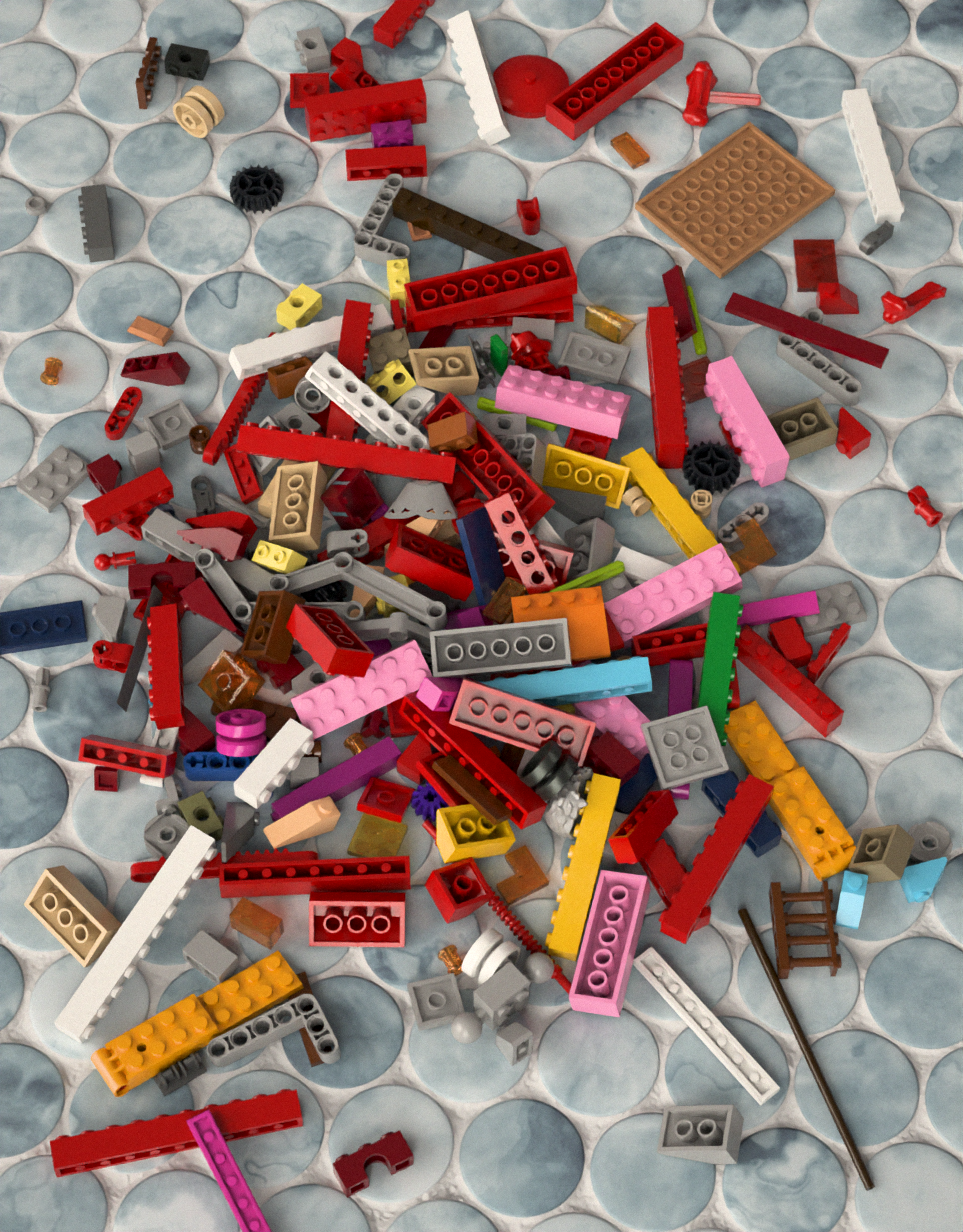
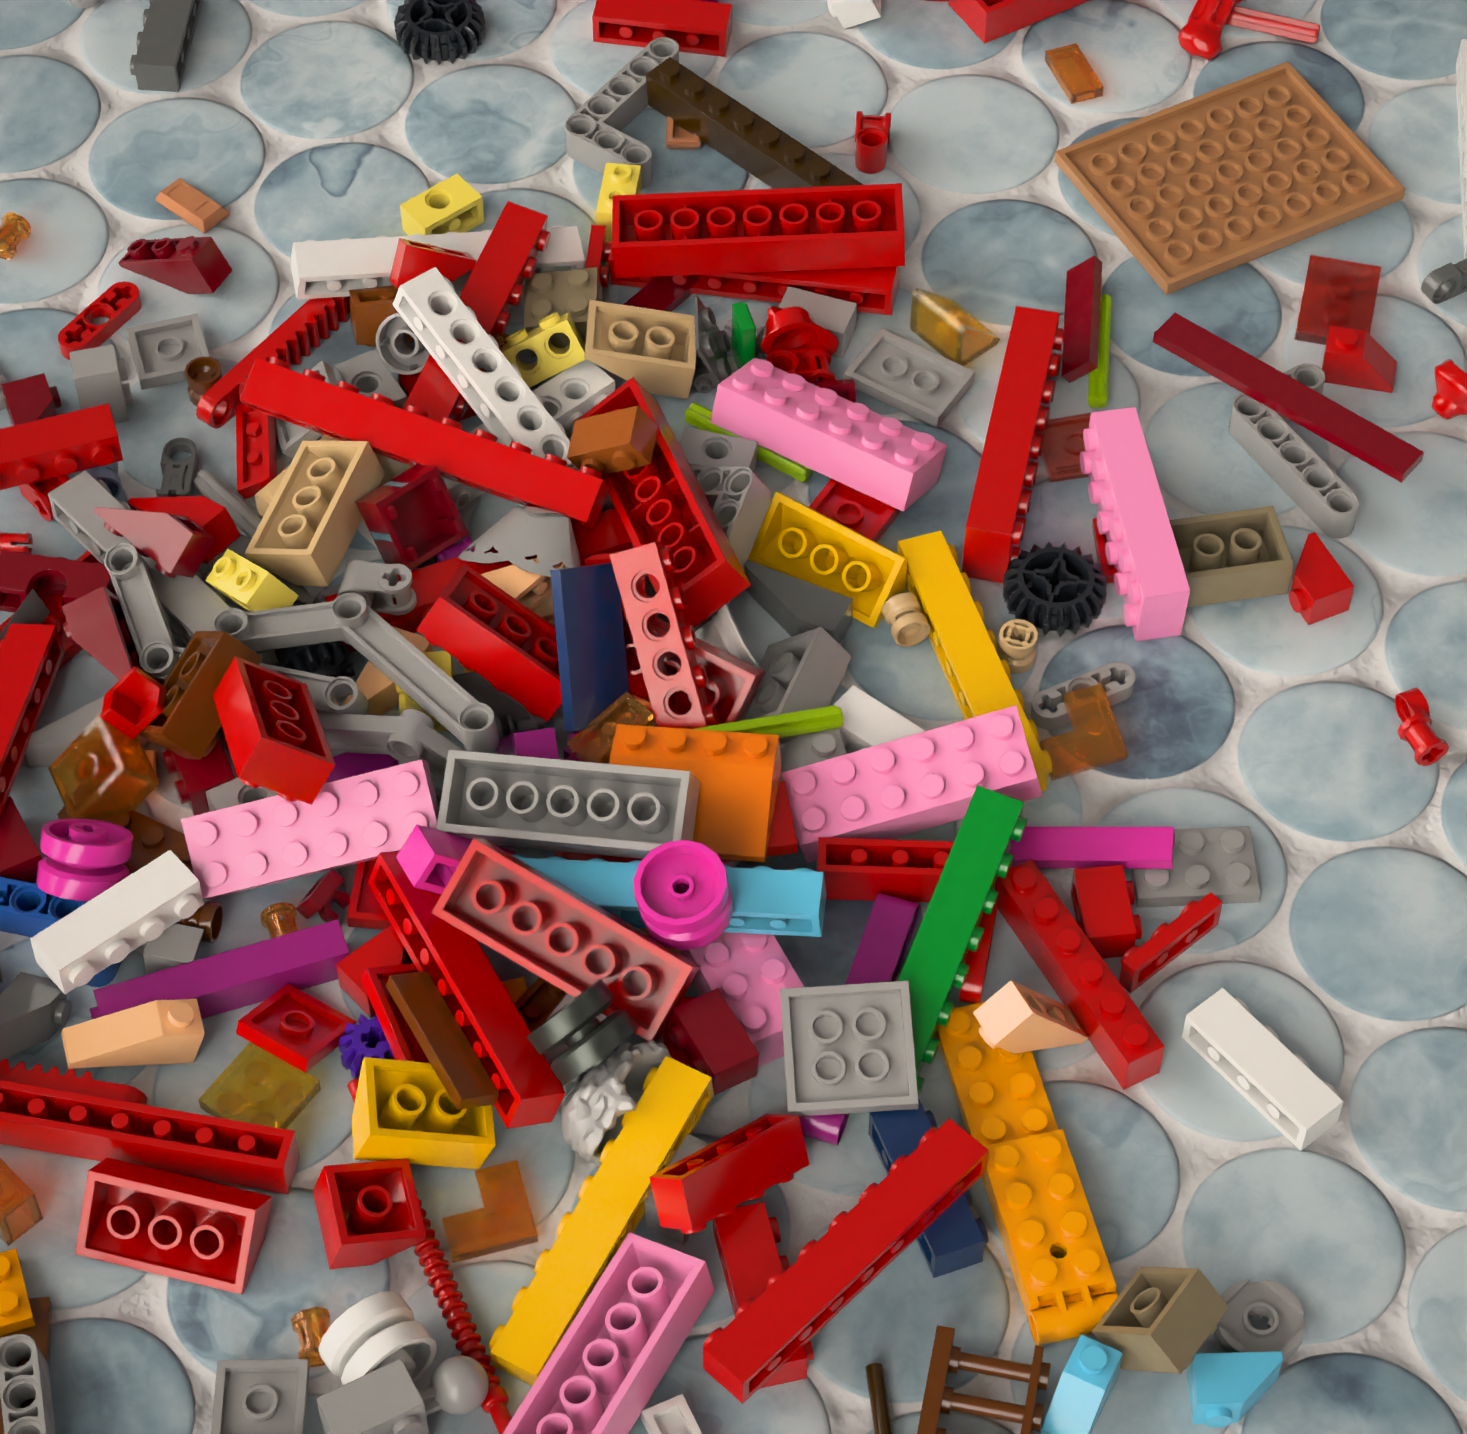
camera: 15 degrees right, 5 degrees down
(239, 639) = (133, 702): none -> red panel
(309, 347) = (417, 258): none -> red slope
(580, 685) = (683, 894): none -> dark pink wheel
(636, 788) = (746, 1101): dark blue tile -> none
(769, 713) = (1027, 1021): none -> light nougat slope
(894, 711) = (1262, 1068): none -> white brick

